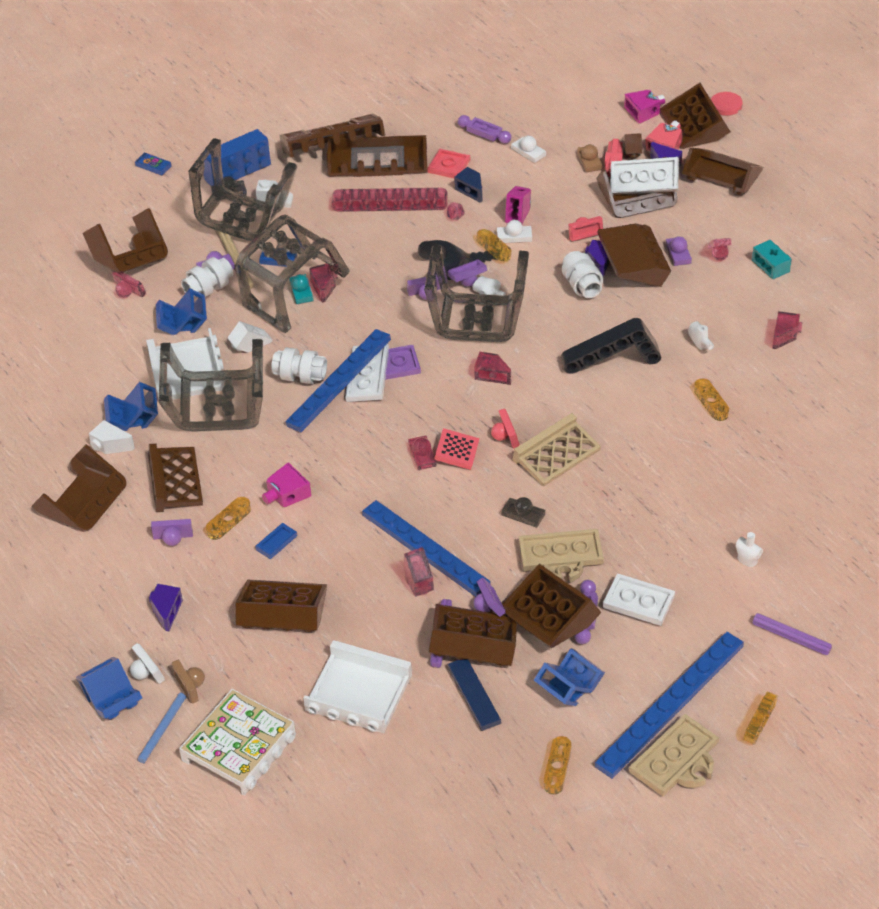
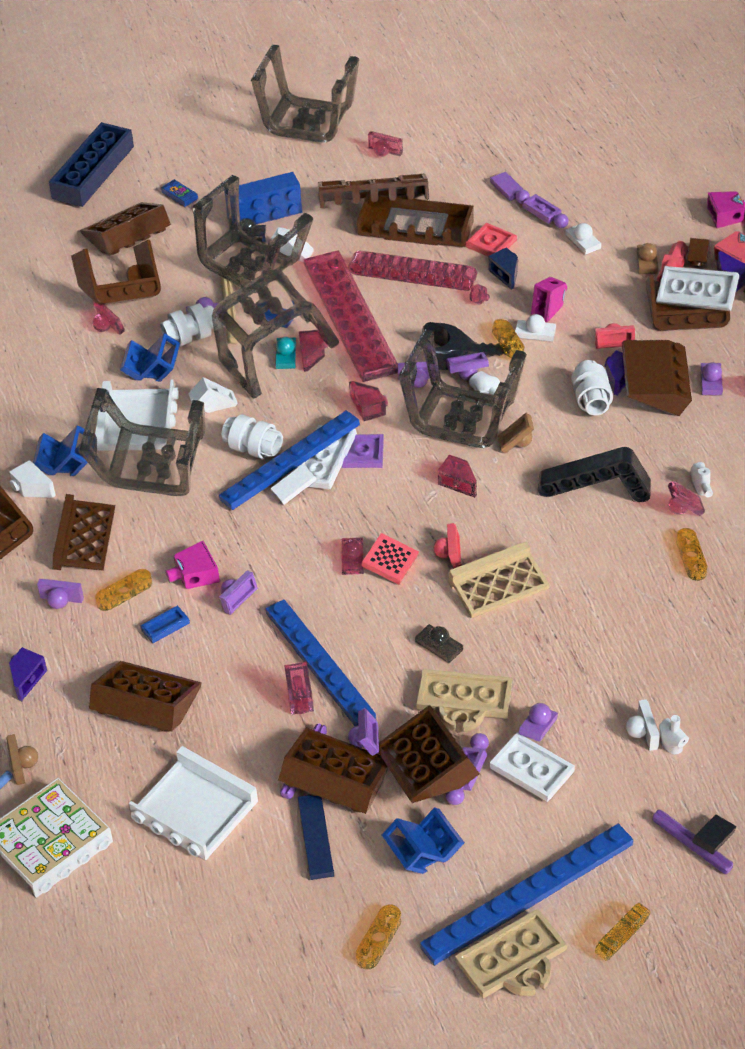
camera: 15 degrees right, 0 degrees up
(63, 150) = (91, 164): none -> dark blue brick
(116, 201) = (127, 227): none -> reddish brown slope
(217, 85) = (297, 131): none -> clear smoke windscreen
(326, 93) = (384, 144): none -> clear pink tile
(332, 501) = (237, 591): none -> medium lavender tile
(349, 400) = (293, 484): none -> white tile
(362, 260) = (351, 316): none -> clear pink plate
(389, 317) = (368, 400): none -> clear pink slope
(445, 114) = (506, 185): none -> medium lavender tile
(531, 324) = (517, 434): none -> medium nougat tile
(632, 561) = (538, 722): none -> medium lavender tile
(691, 355) = (684, 500): none -> clear pink tile
(721, 546) = (644, 725): none -> white tile
(809, 624) = (714, 834): none -> black tile

